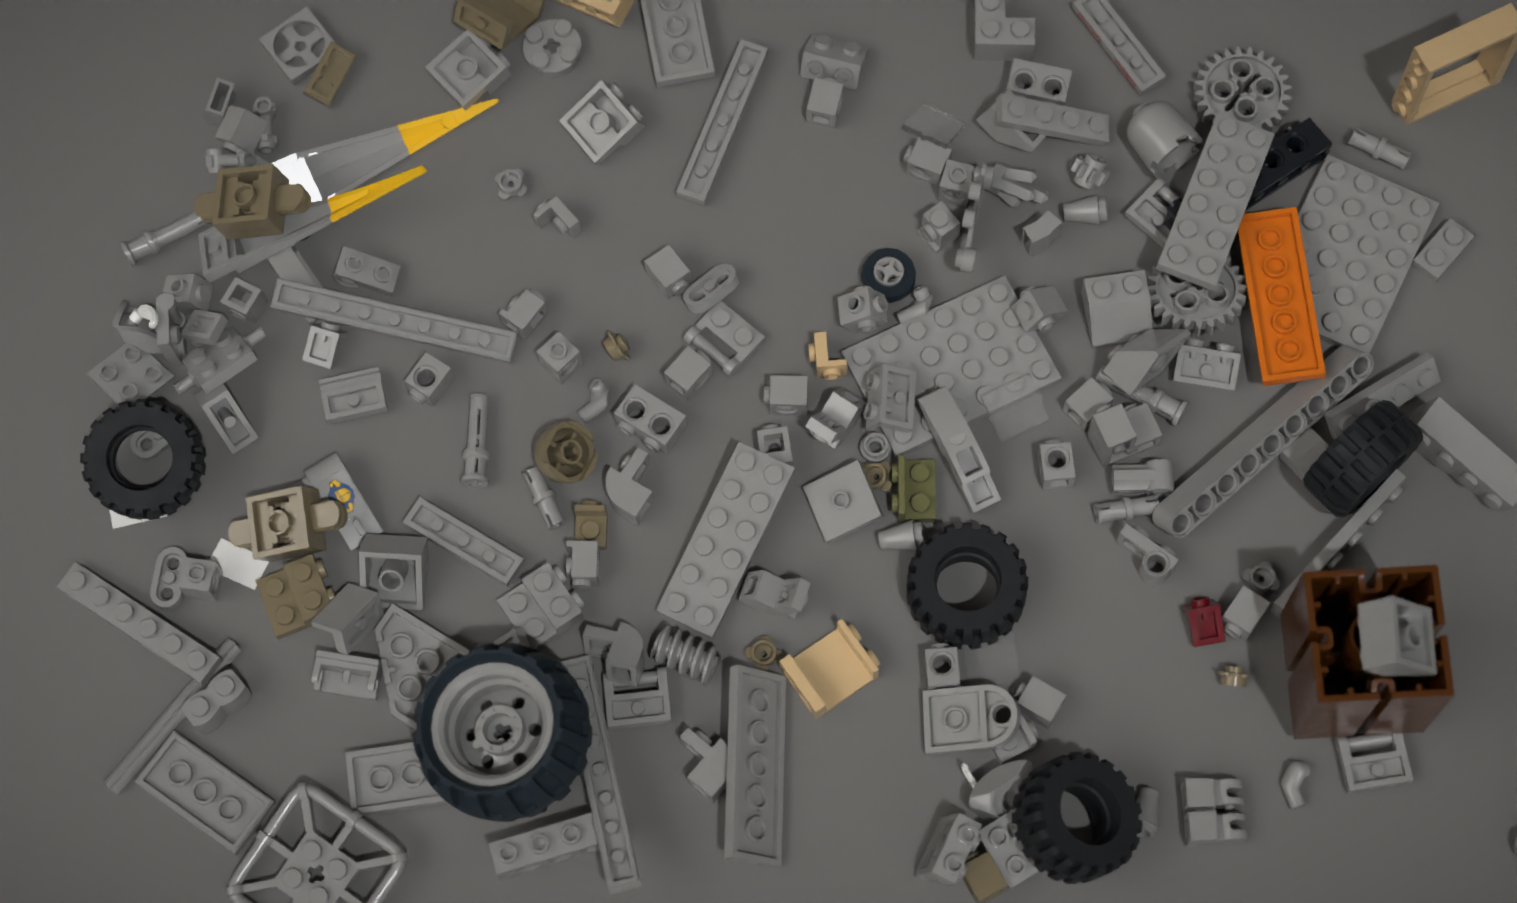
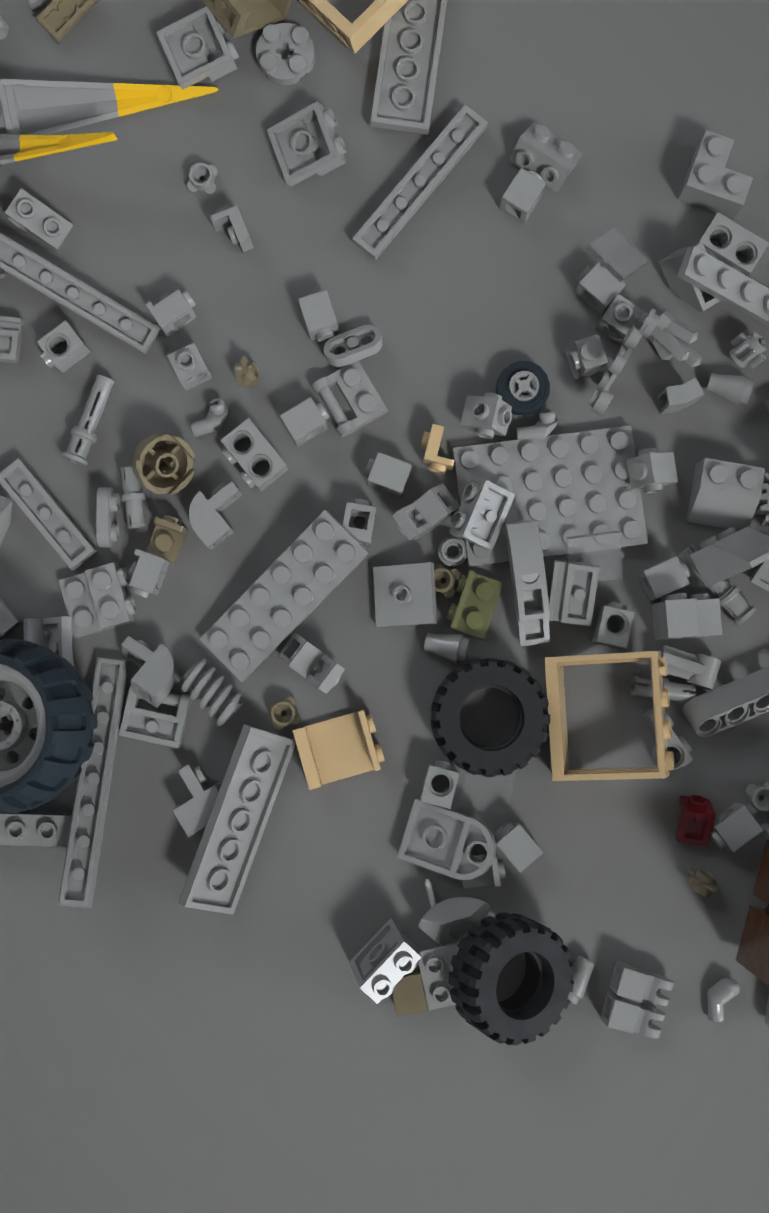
camera: 15 degrees right, 15 degrees up
(530, 536) = (106, 529): none -> light grey plate
(1006, 445) = (573, 592): none -> light grey plate
(1014, 517) = (558, 721): none -> tan window

